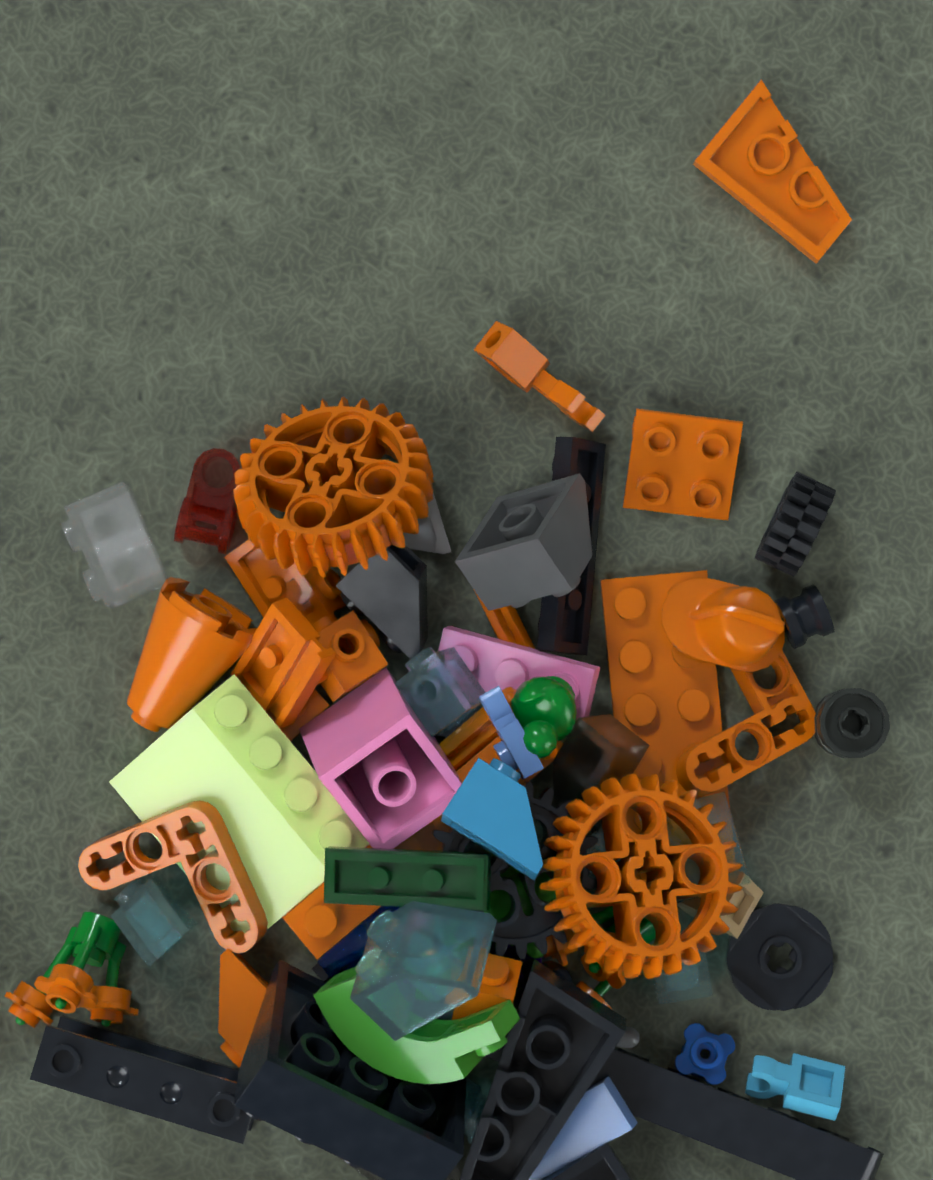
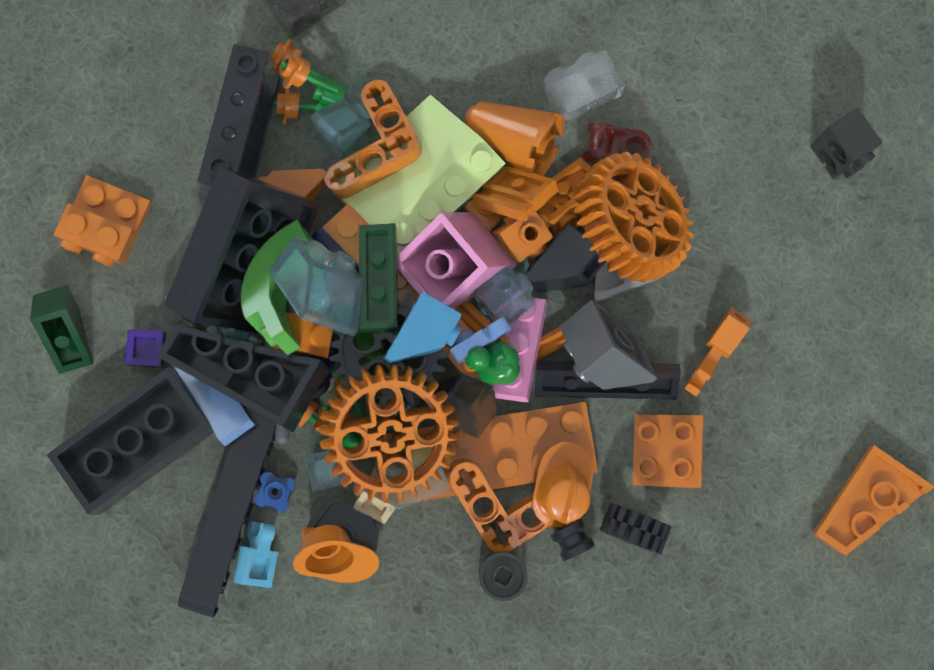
camera: 85 degrees right, 5 degrees down
(242, 153) = (846, 145): none -> pearl dark grey brick
(808, 970) = (332, 556): none -> orange piece

